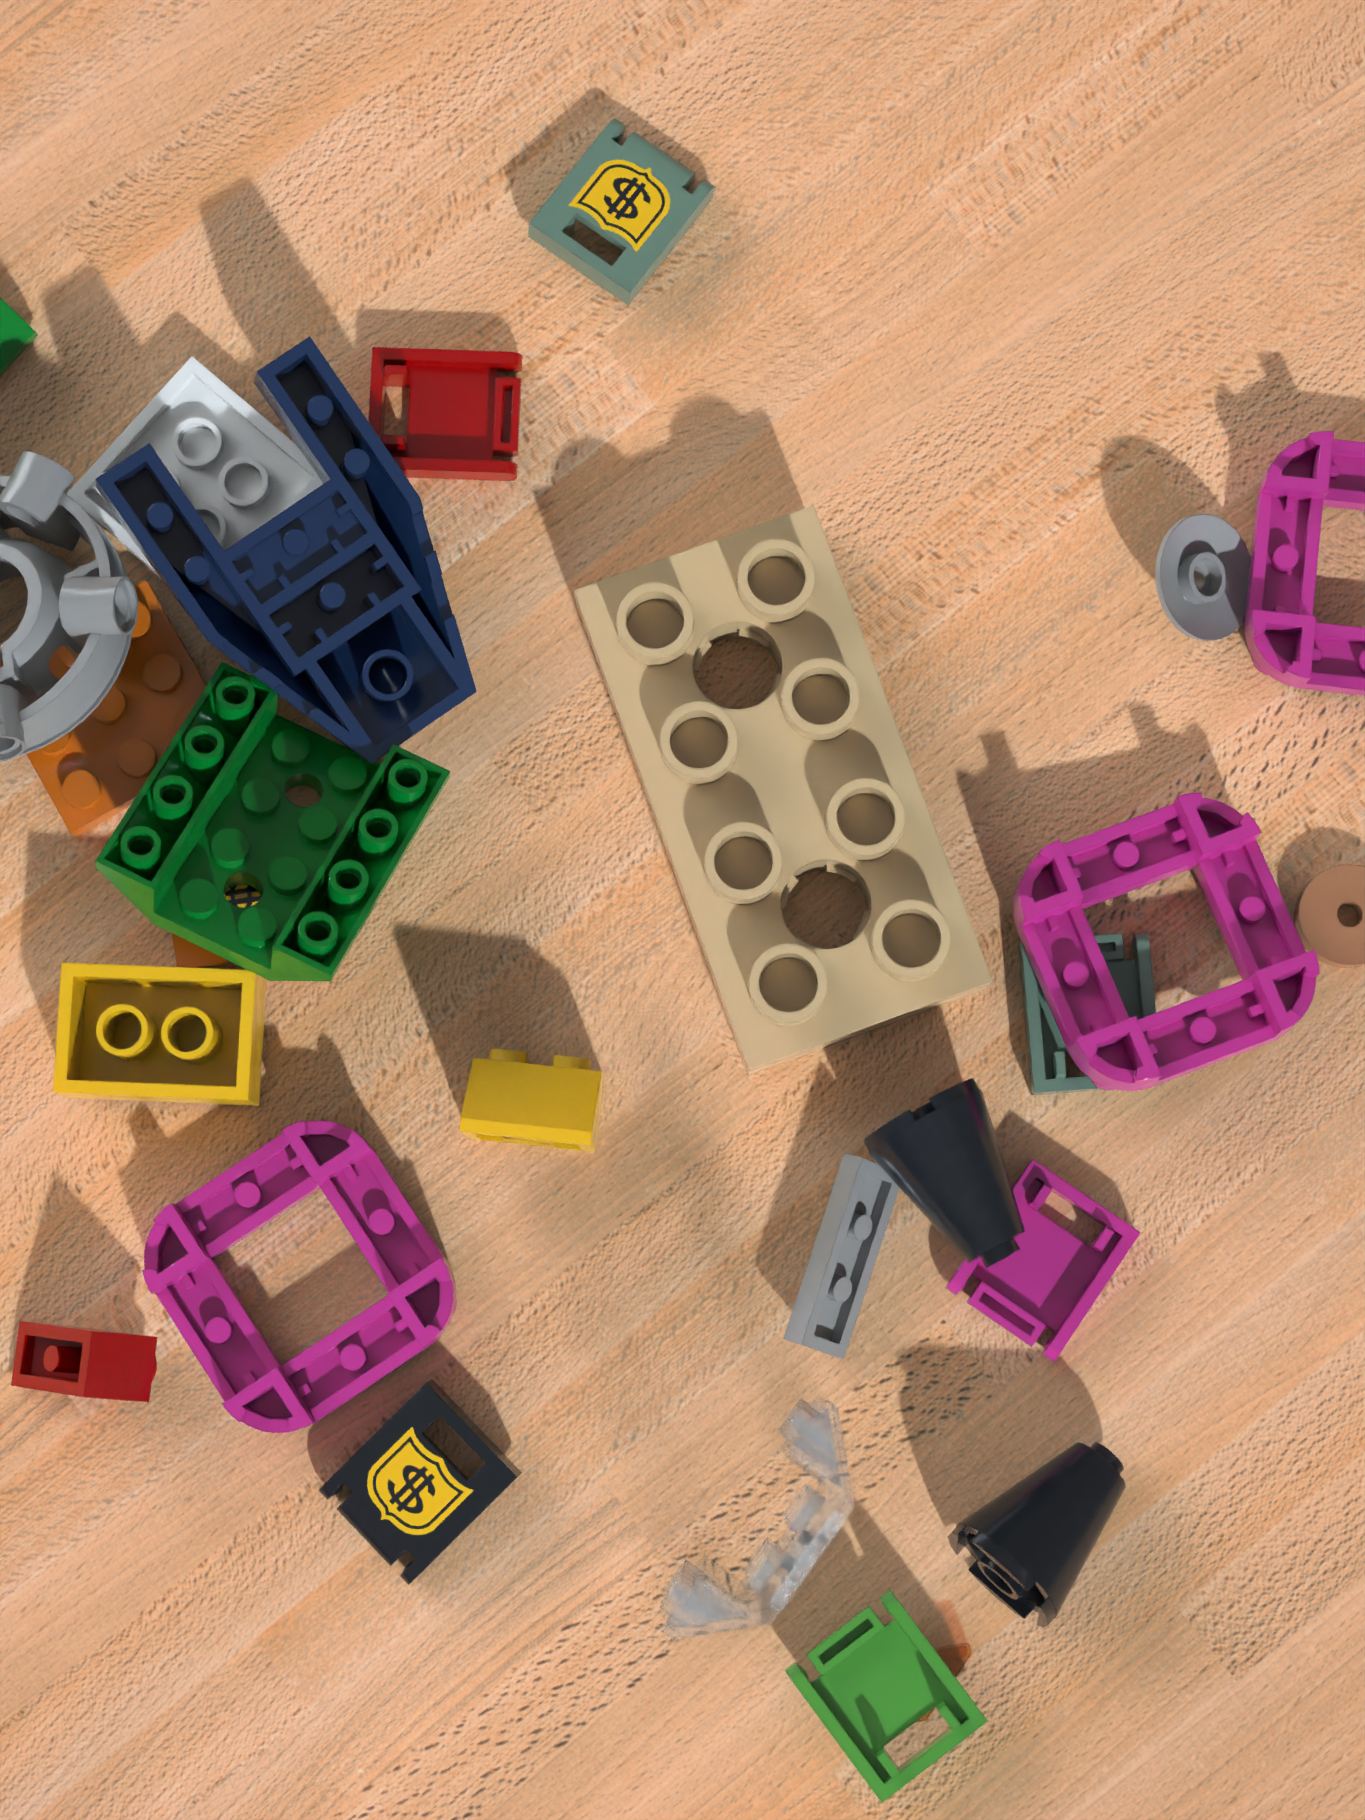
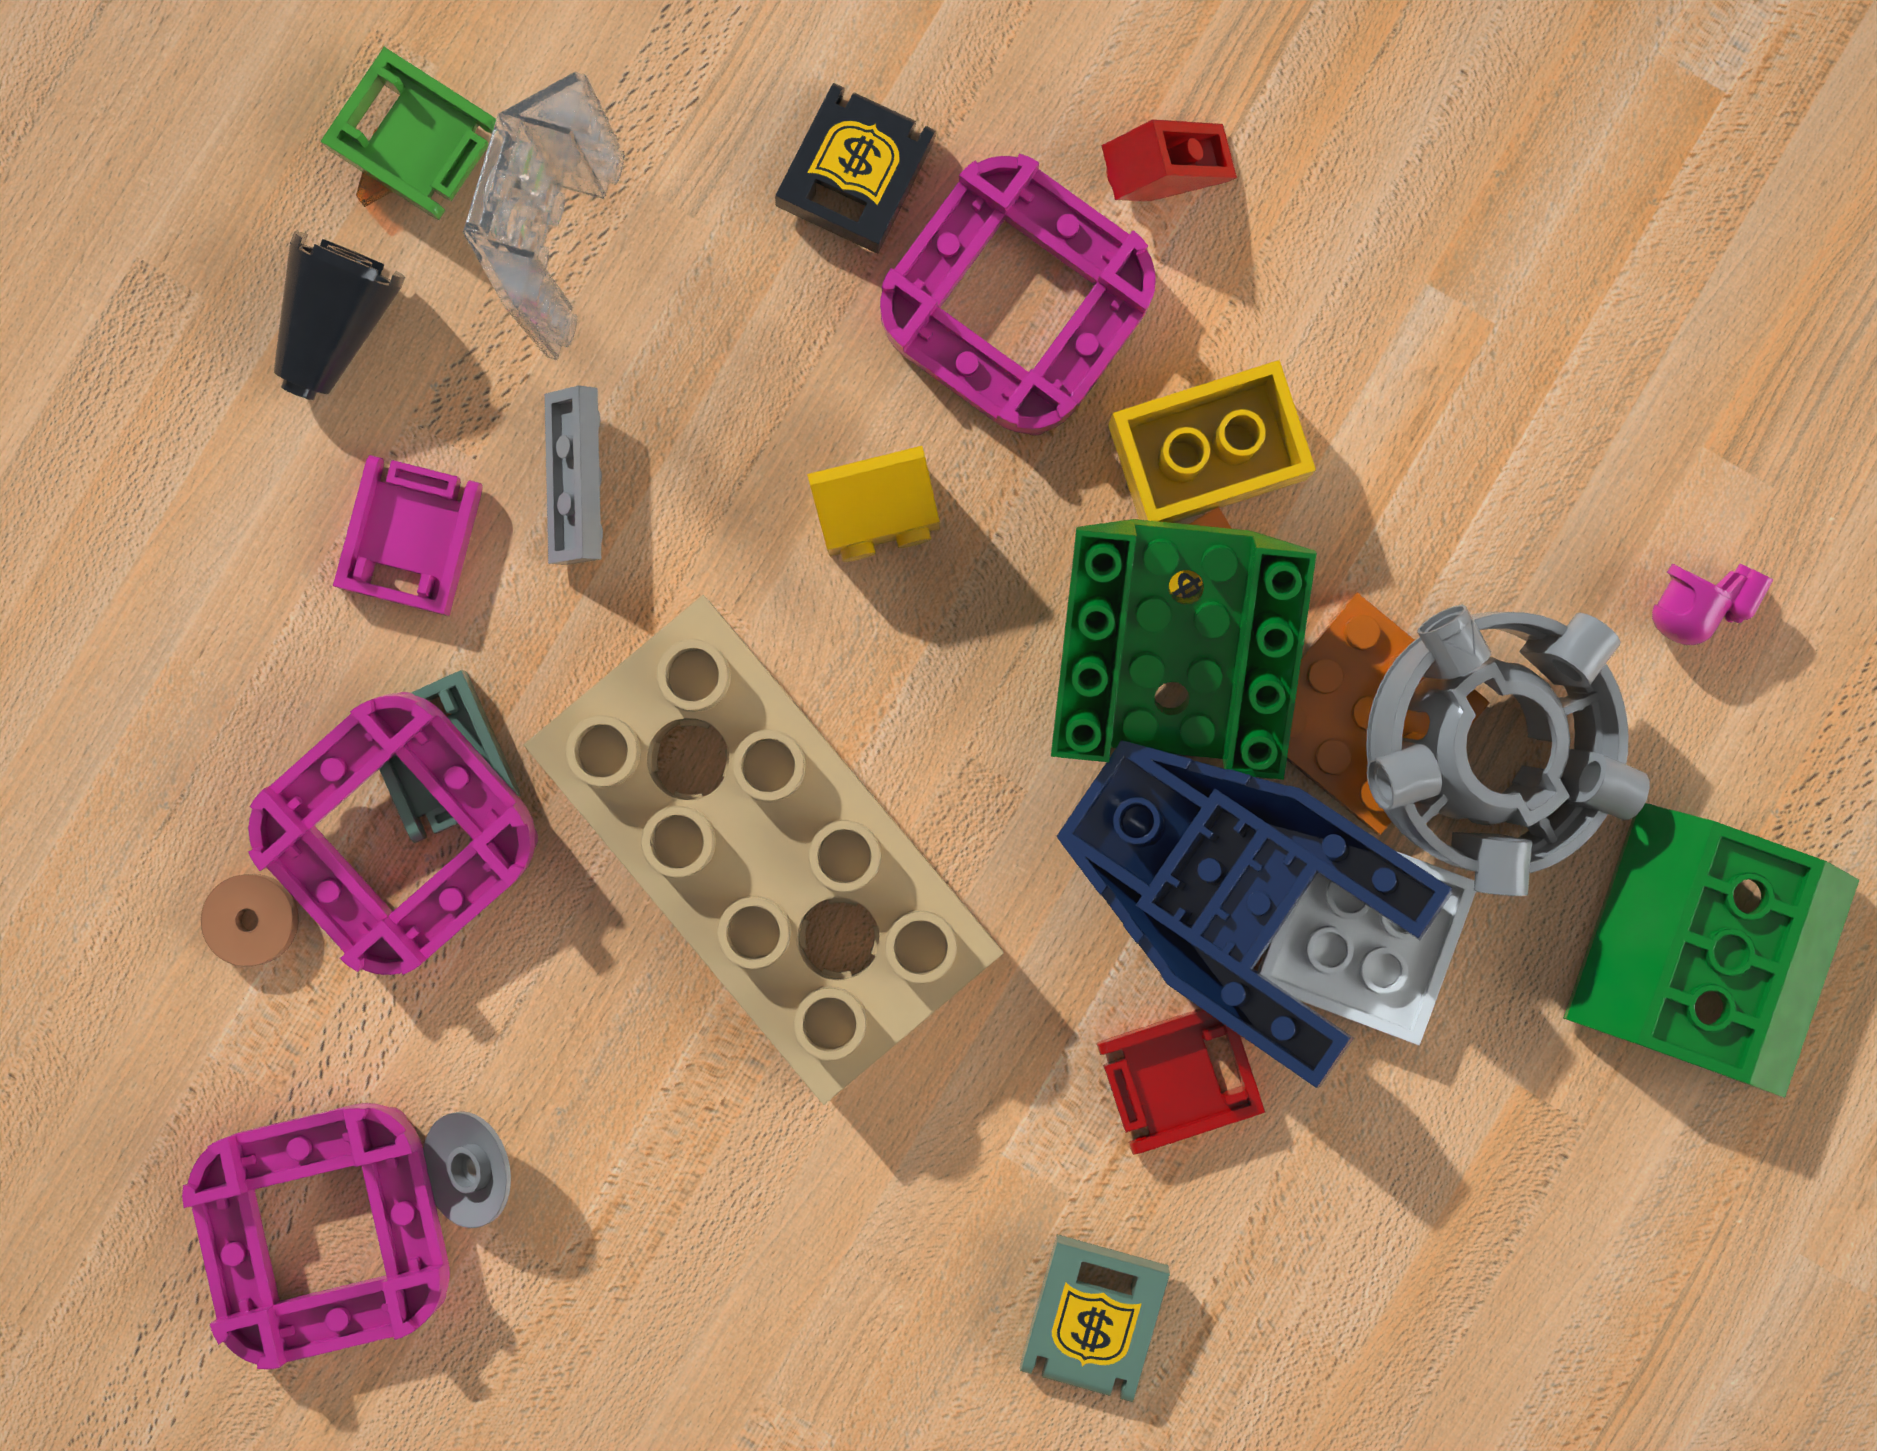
camera: 160 degrees right, 5 degrees up
(953, 1171) = (502, 574): black cone -> none

